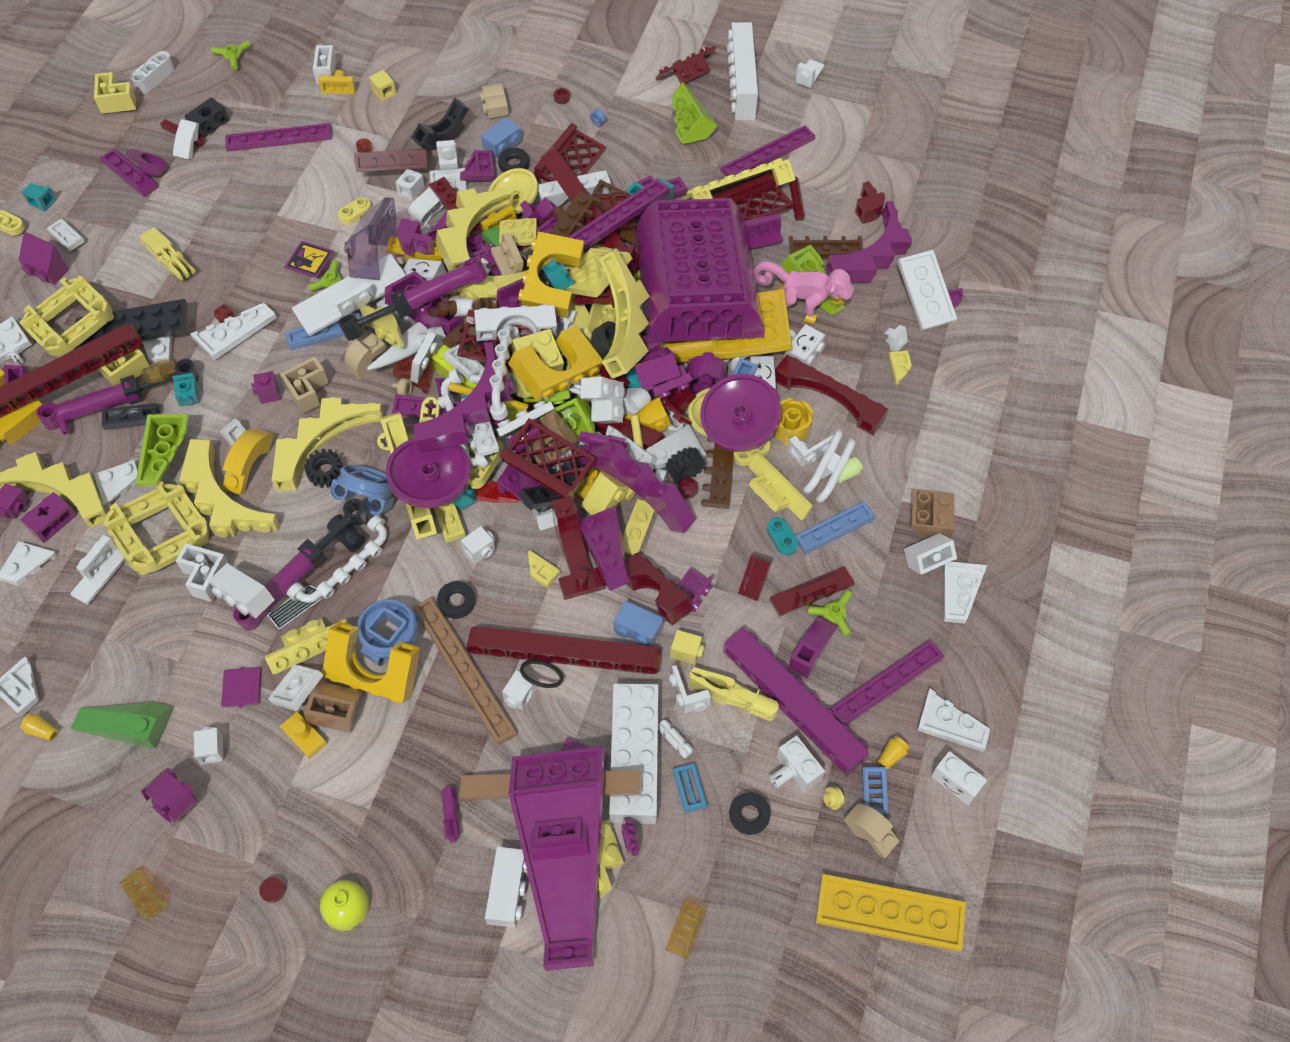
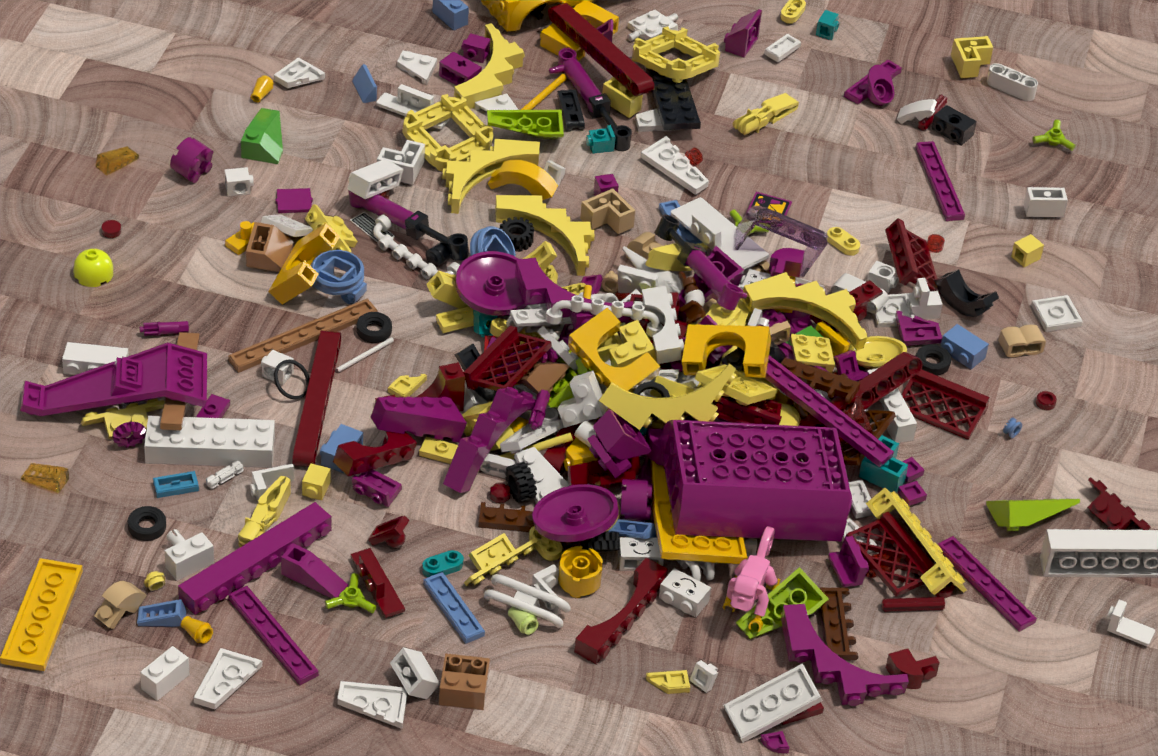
camera: 85 degrees right, 15 degrees down
(52, 614) = (365, 85): none -> medium blue slope
(98, 442) = (543, 94): none -> yellow bar
(158, 371) = (618, 117): clear yellow slope -> none
(337, 84) = (1023, 216): yellow tile -> none
(457, 78) = (1056, 313): none -> white tile
(478, 544) = (430, 338): white brick -> none
(492, 607) = (364, 355): none -> white axle
(557, 275) = (725, 353): teal brick -> none

